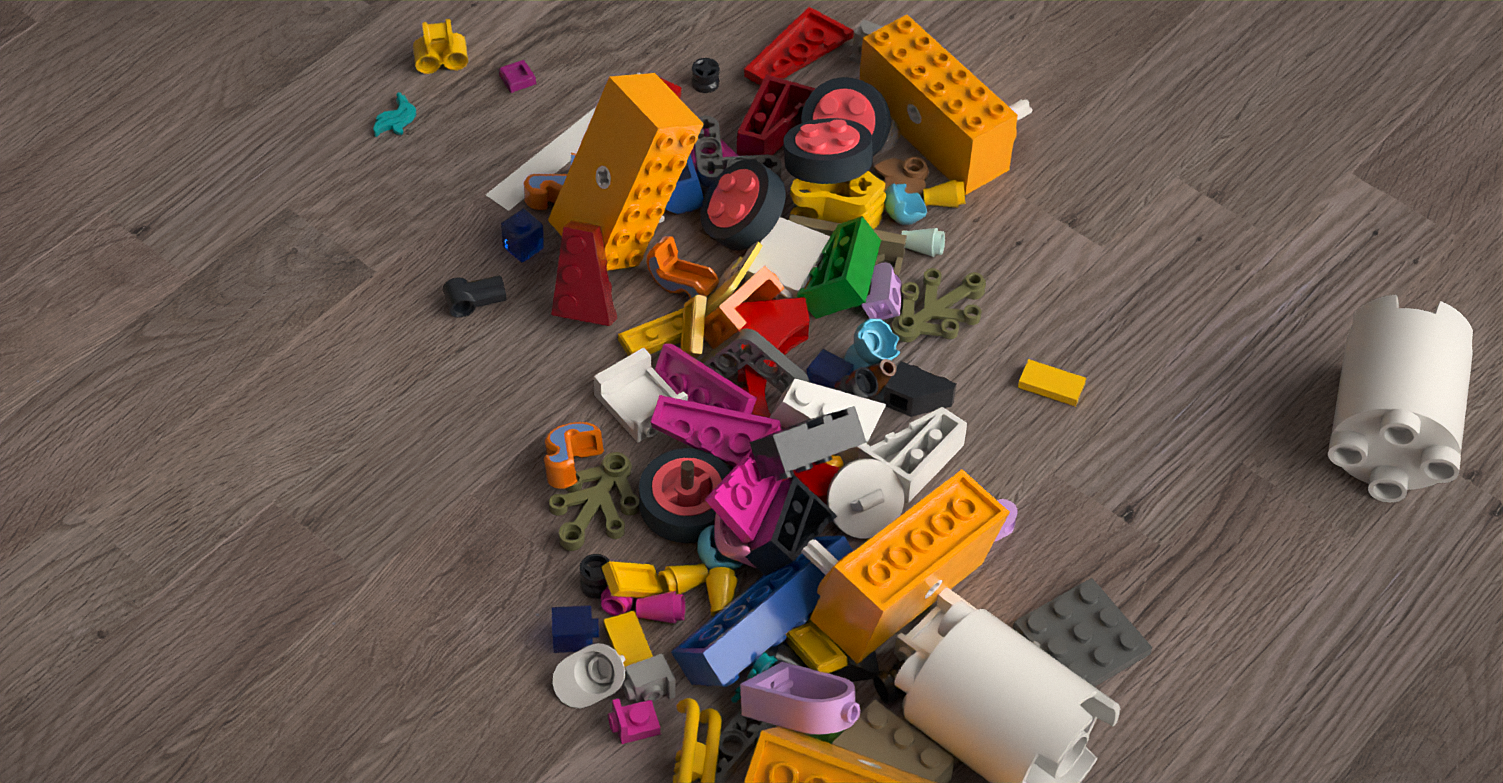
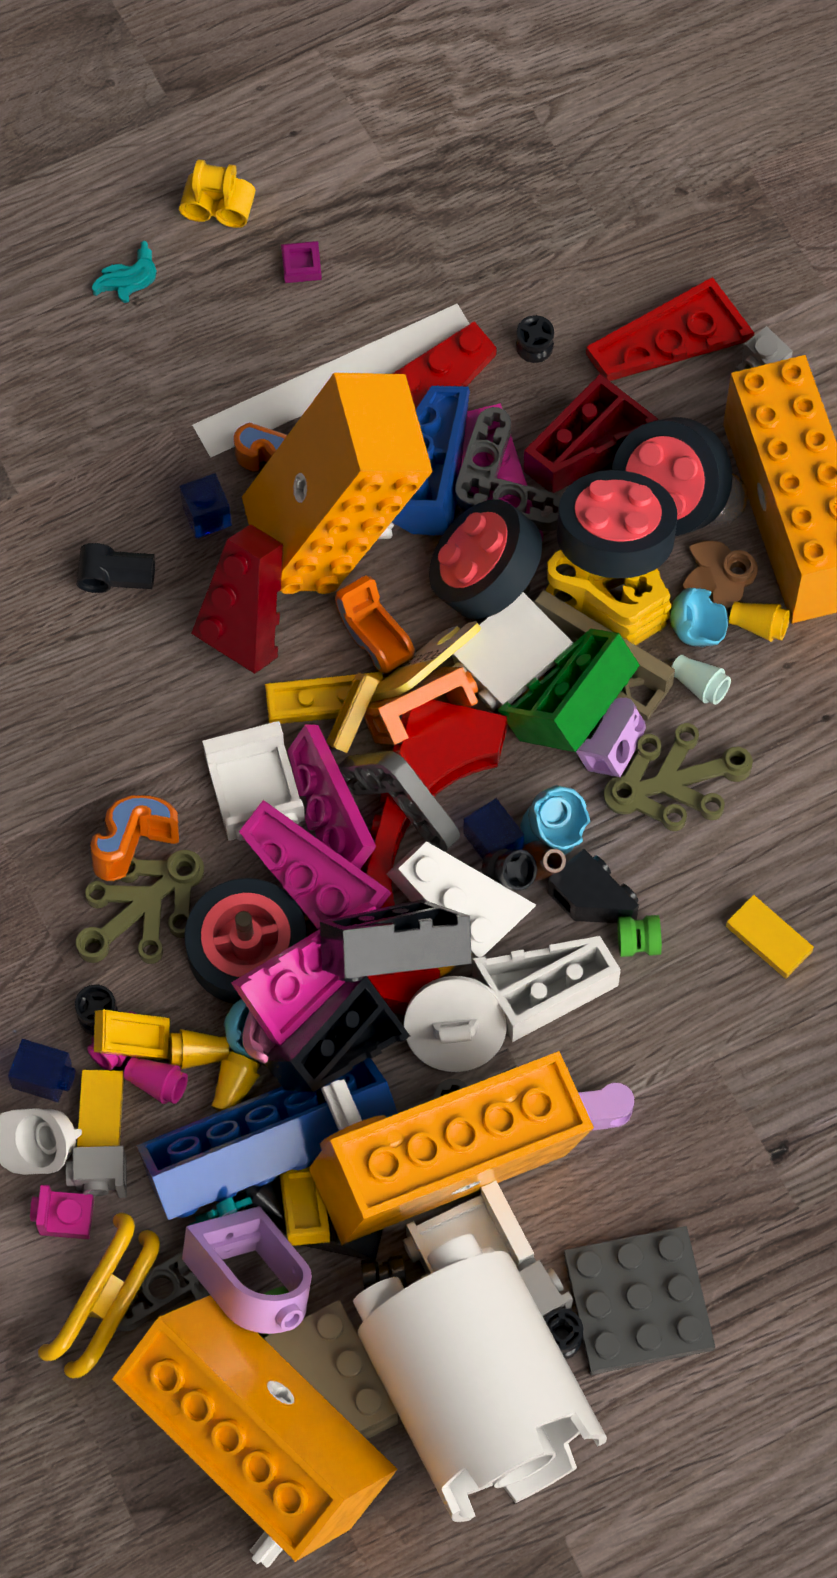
camera: 25 degrees right, 15 degrees up
(966, 405) = (648, 934): none -> bright green wheel

